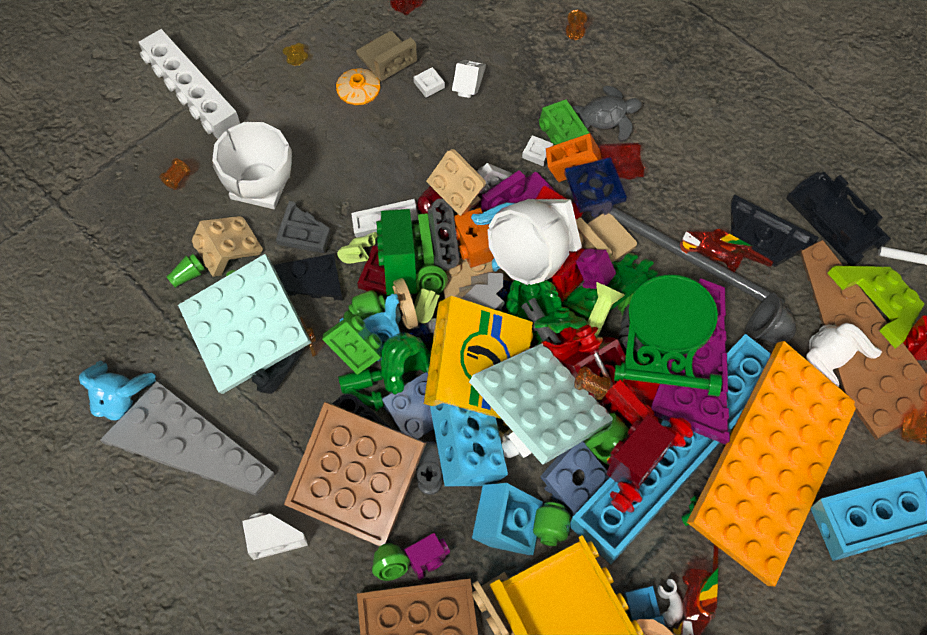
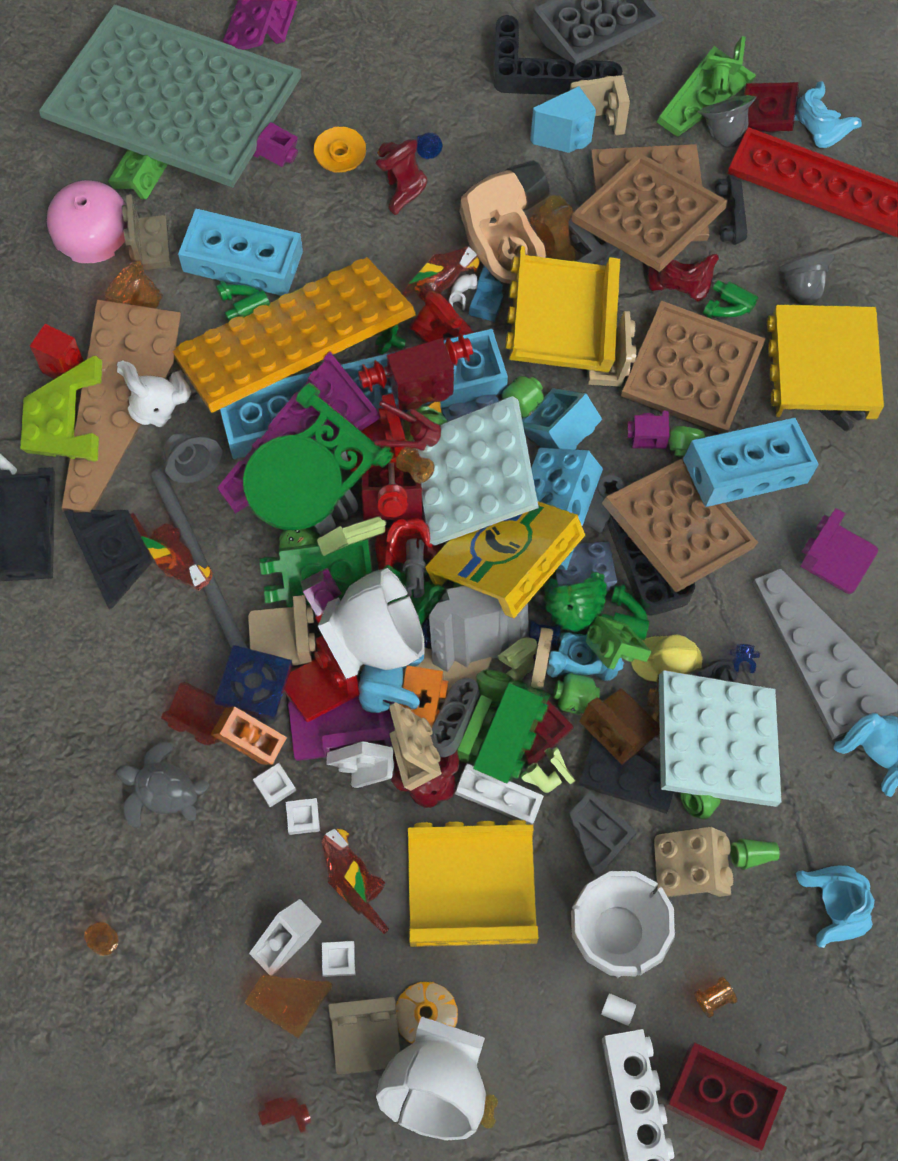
camera: 150 degrees left, 5 degrees up
(107, 271) = (846, 902): none -> medium azure hair
(143, 119) = (725, 1097): none -> dark red brick
(209, 532) = (838, 554): none -> magenta bracket
(253, 405) = (742, 653): none -> clear blue plate
(269, 536) = (782, 519): white slope -> none
(301, 560) = (750, 462): none -> medium azure brick
(314, 376) = (668, 653): none -> light yellow piece
(323, 37) = (443, 1083): none -> white plate
(323, 299) = (620, 724): none -> reddish brown bracket
(369, 158) = (471, 884): none -> yellow panel
(444, 49) = (288, 1001): none -> clear orange wing
(451, 125) = (351, 877): none -> clear red animal
(506, 142) = (302, 816): none -> white plate
(560, 319) = (402, 541): green plate -> none
(561, 122) = (225, 796): bright green bracket -> none
(603, 404) = (422, 430): none -> dark red plant
(664, 549) = (437, 319): none -> red hair
(833, 475) = (245, 306): none -> green plant

